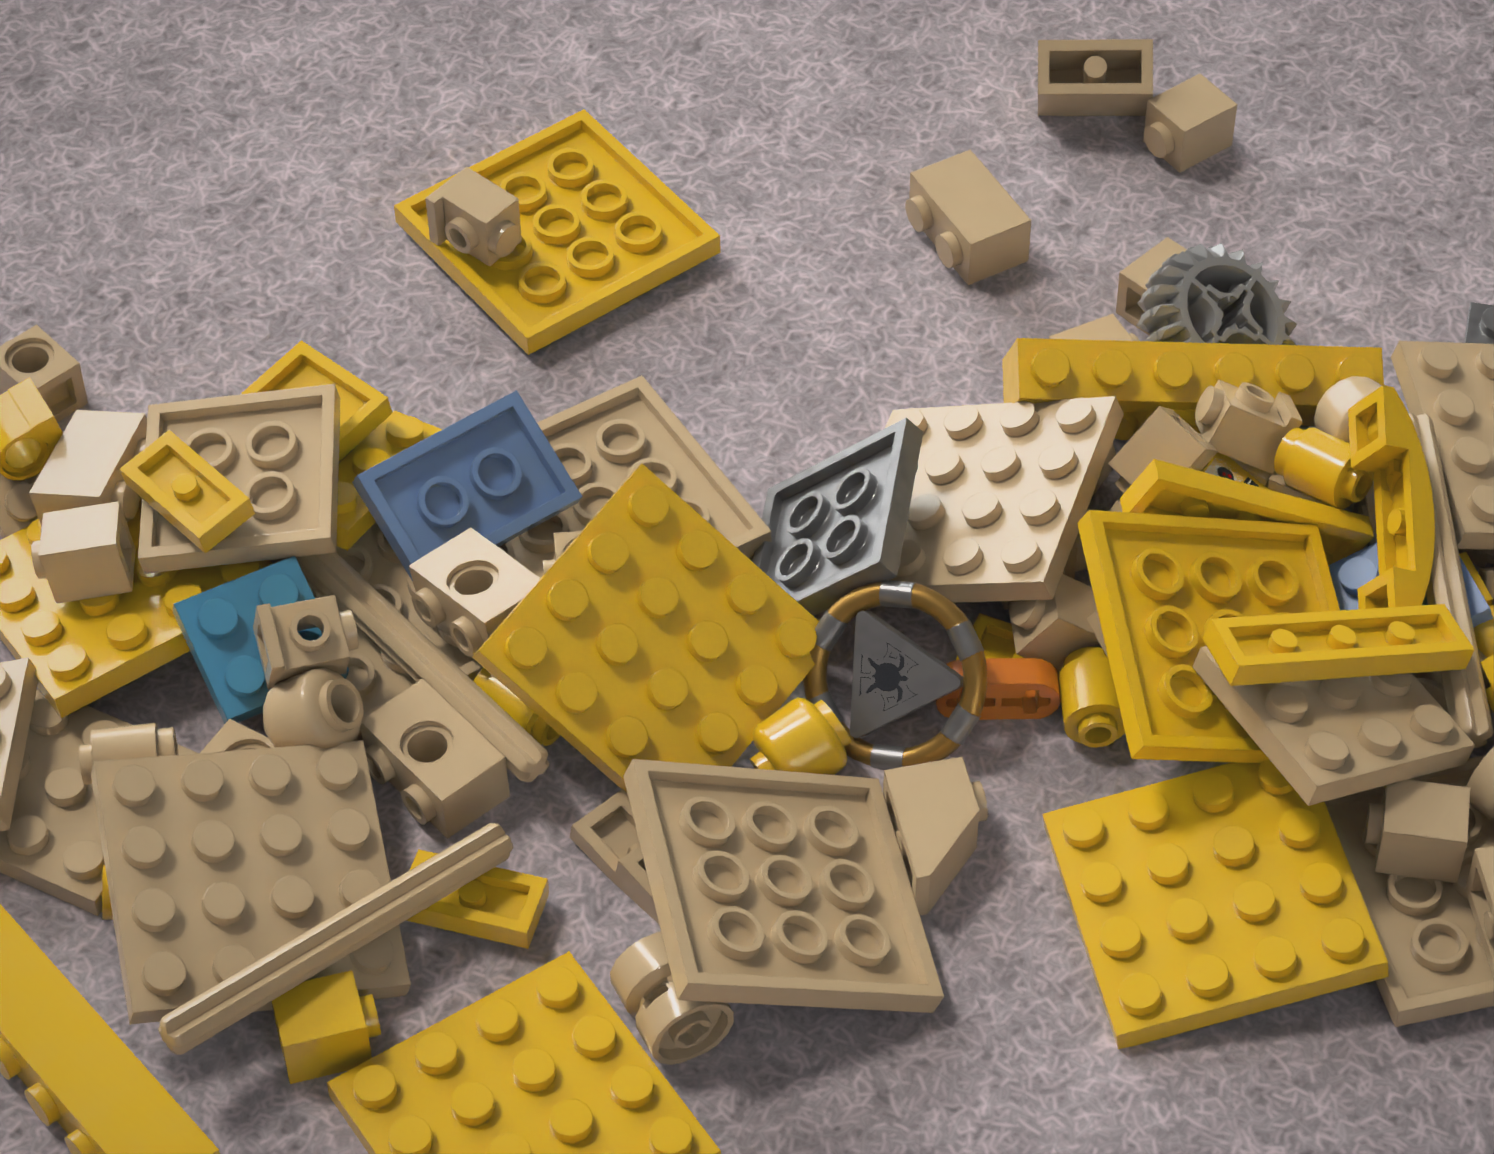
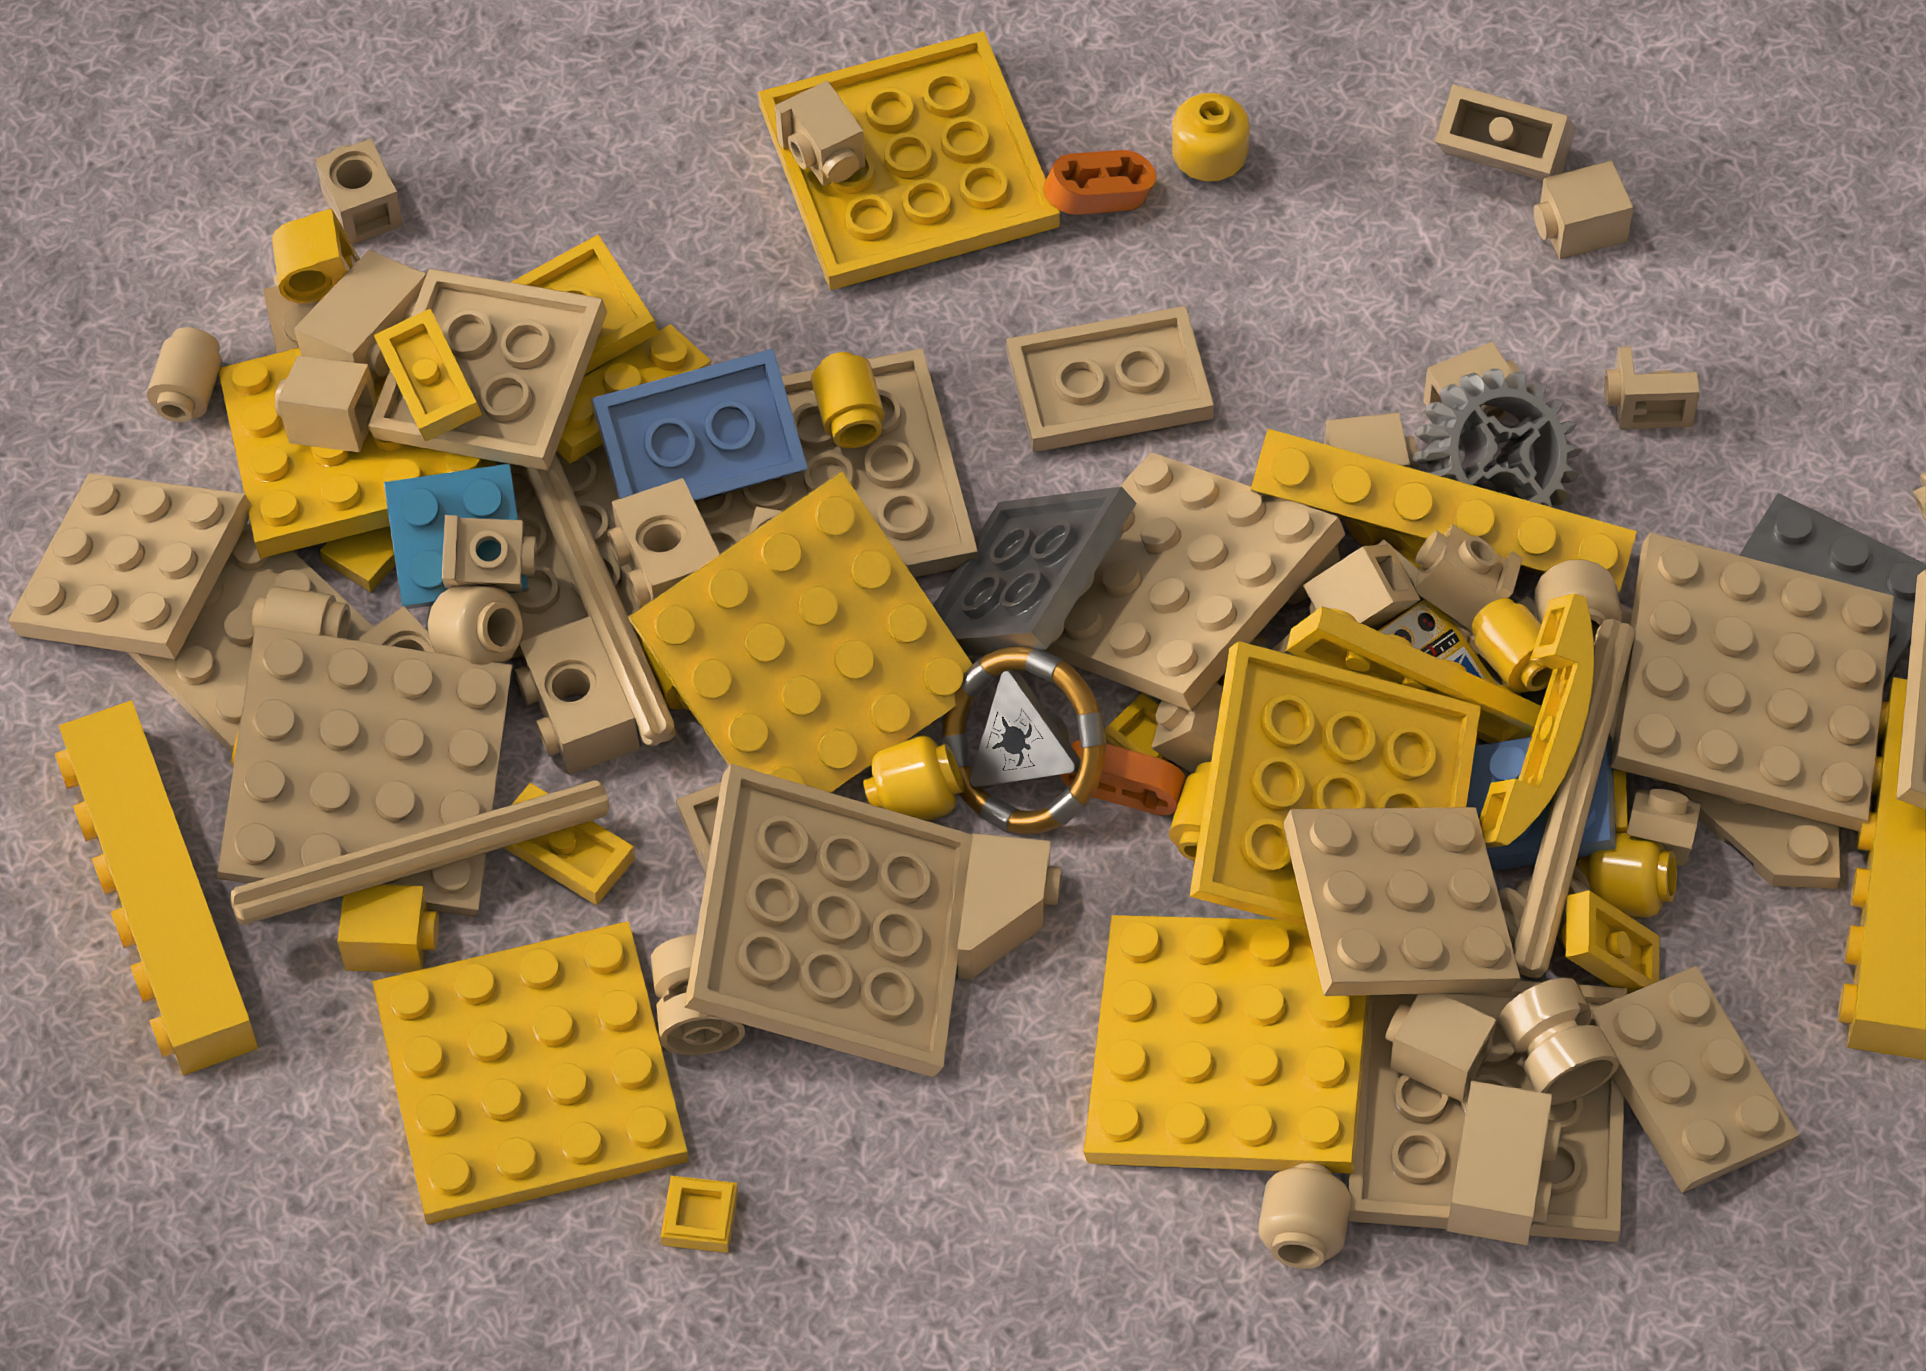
camera: 20 degrees right, 10 degrees up
(163, 693) = (362, 557): none -> yellow tile
(596, 428) = (848, 399): none -> yellow brick
(744, 203) = (1099, 182): none -> orange beam
(825, 360) = (1109, 378): none -> tan plate
(830, 142) = (1210, 136): none -> yellow head
(968, 217) = (1313, 258): tan brick -> none
(1320, 254) = (1650, 399): none -> tan bracket
(1337, 644) = (1418, 846): yellow plate -> none
(1360, 1029) = (1304, 1215): none -> tan head

